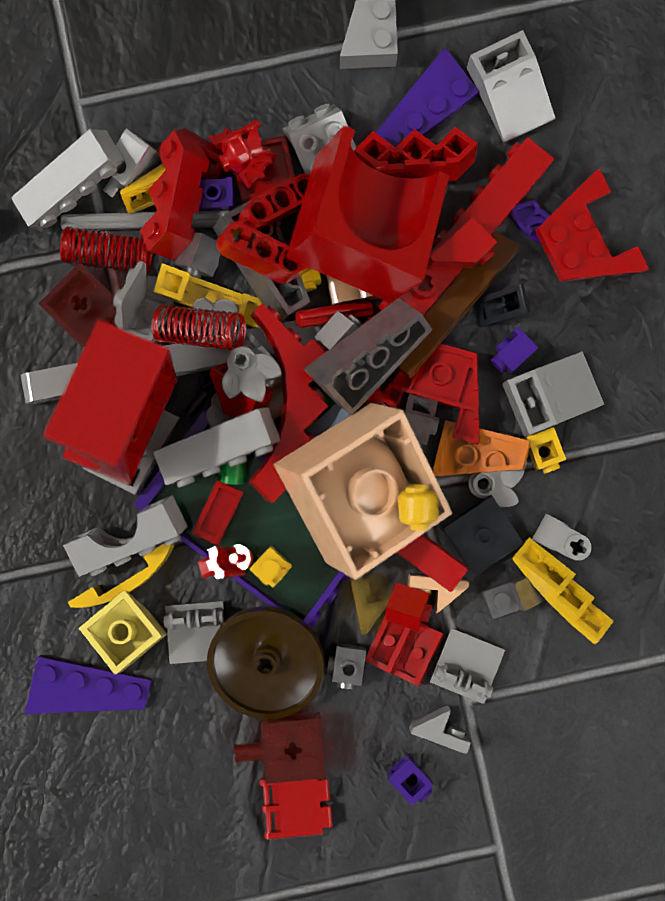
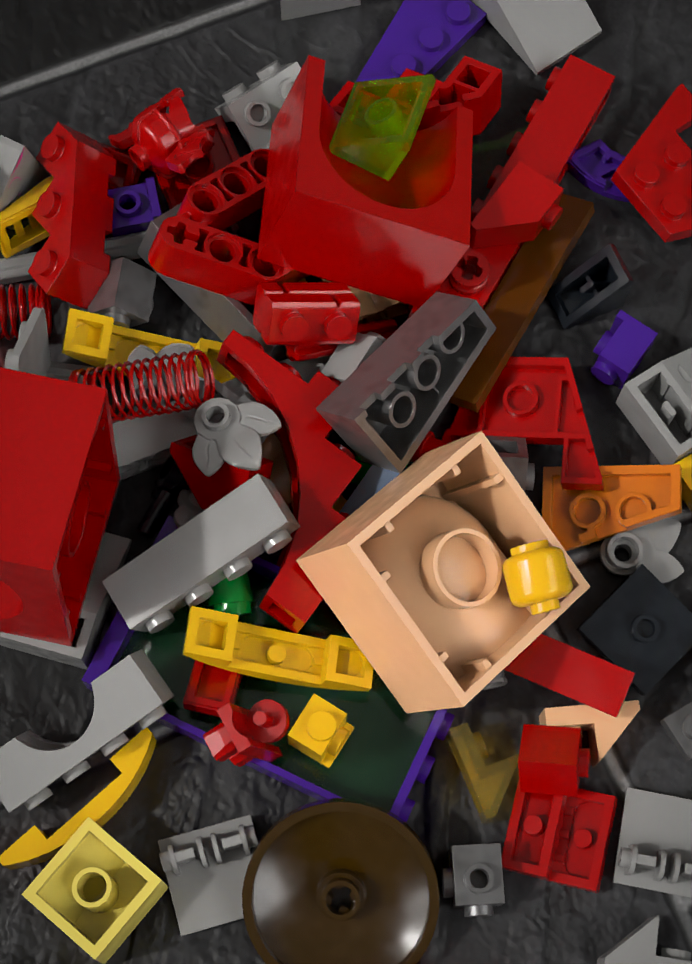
camera: 15 degrees left, 15 degrees down
(252, 513) = (275, 654): none -> yellow slope
(311, 299) = (306, 313): none -> red brick
(386, 174) = (381, 122): none -> clear neon green slope

